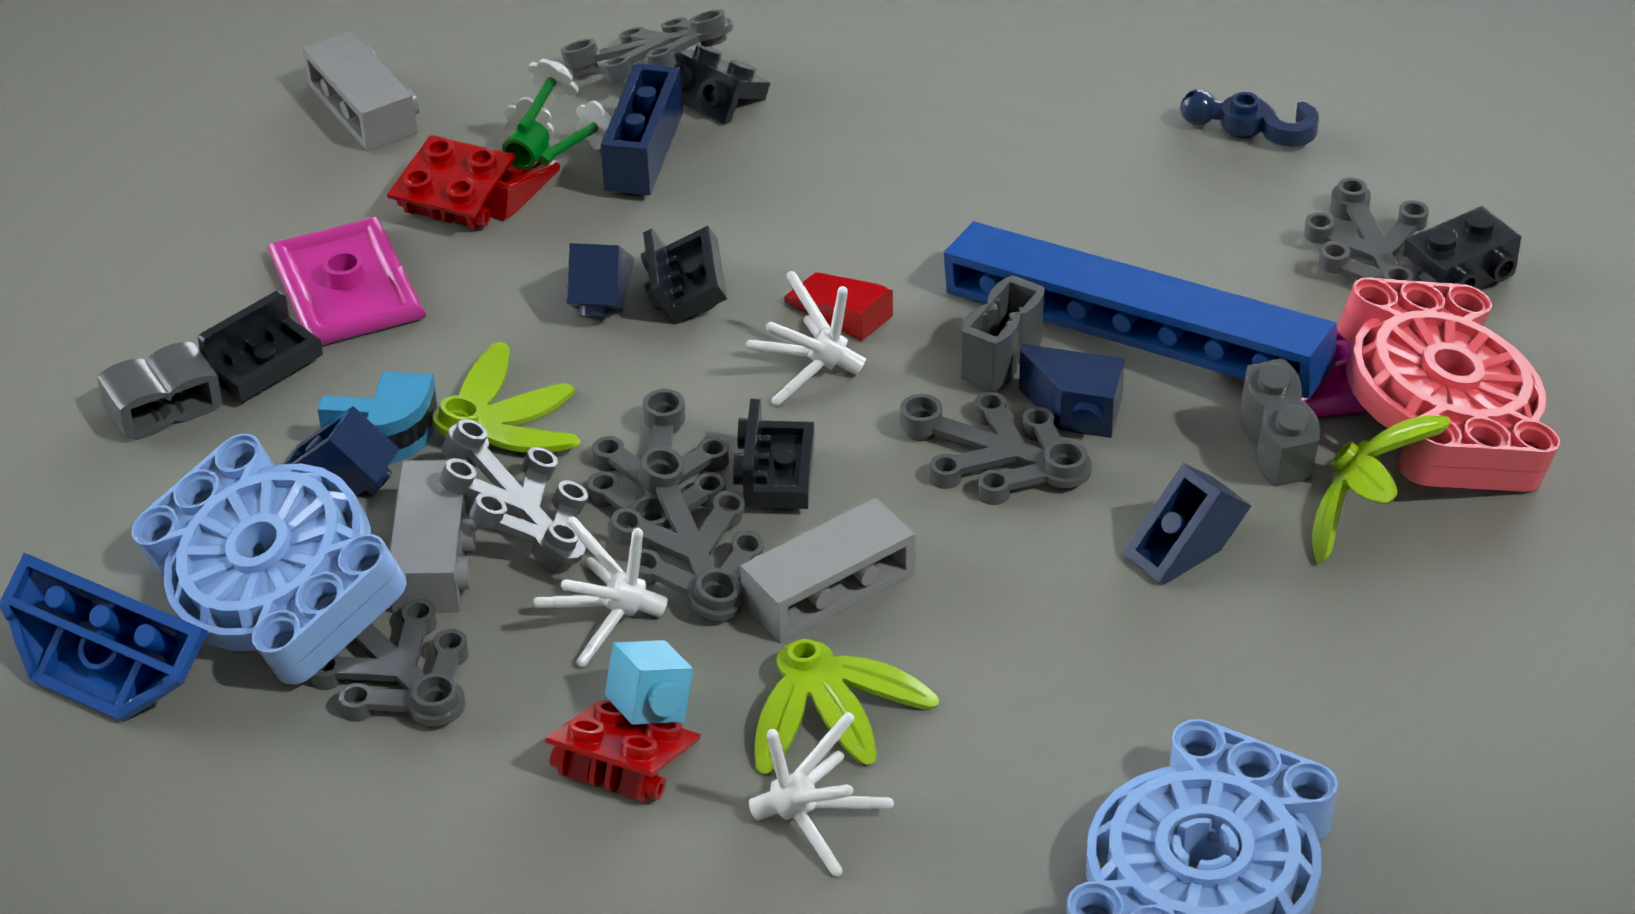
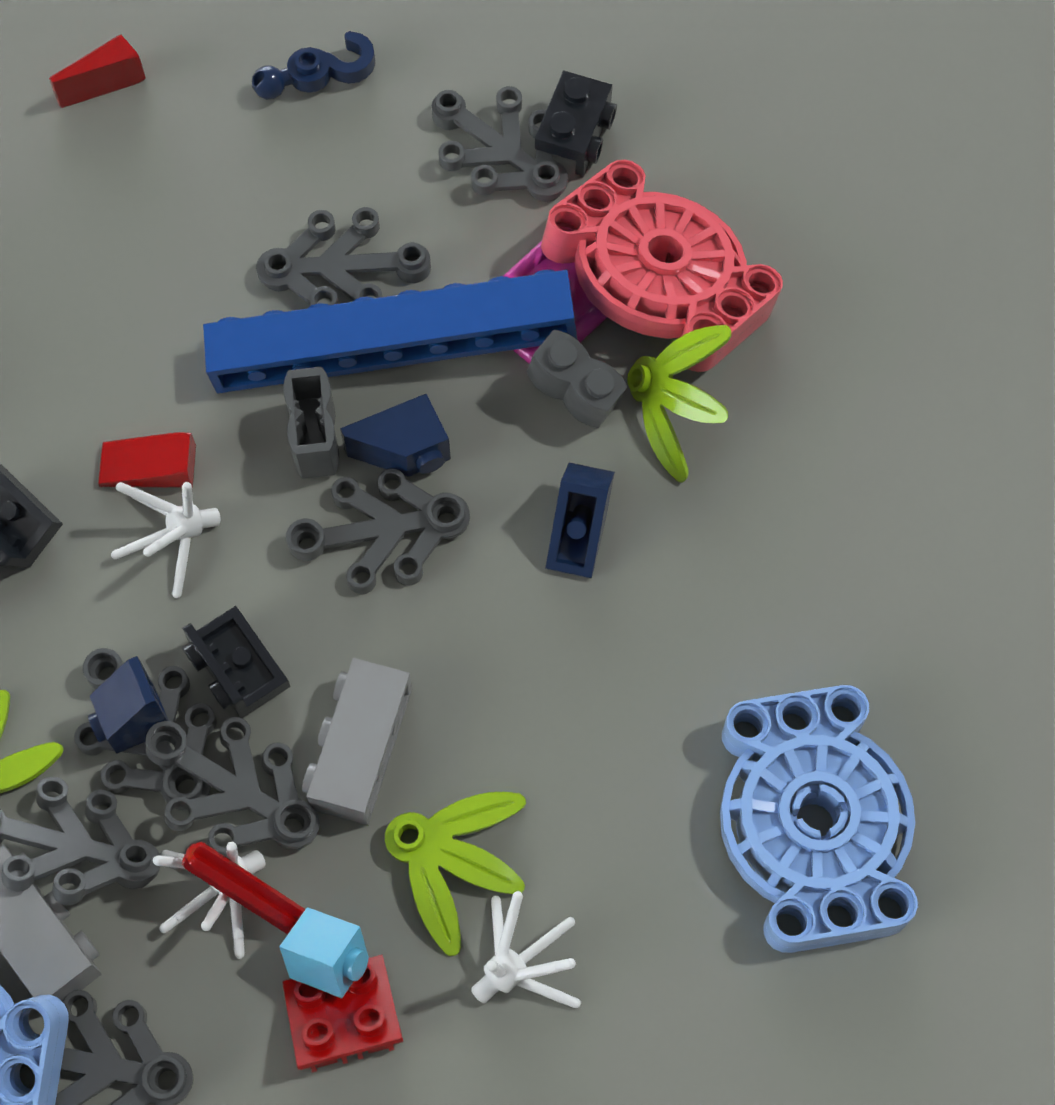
camera: 40 degrees left, 25 degrees up
(621, 579) = (242, 886): none -> red axle
(654, 418) = (126, 707): none -> dark blue slope
(1051, 36) = (98, 73): none -> red slope
(1090, 234) = (336, 263): none -> dark grey plant

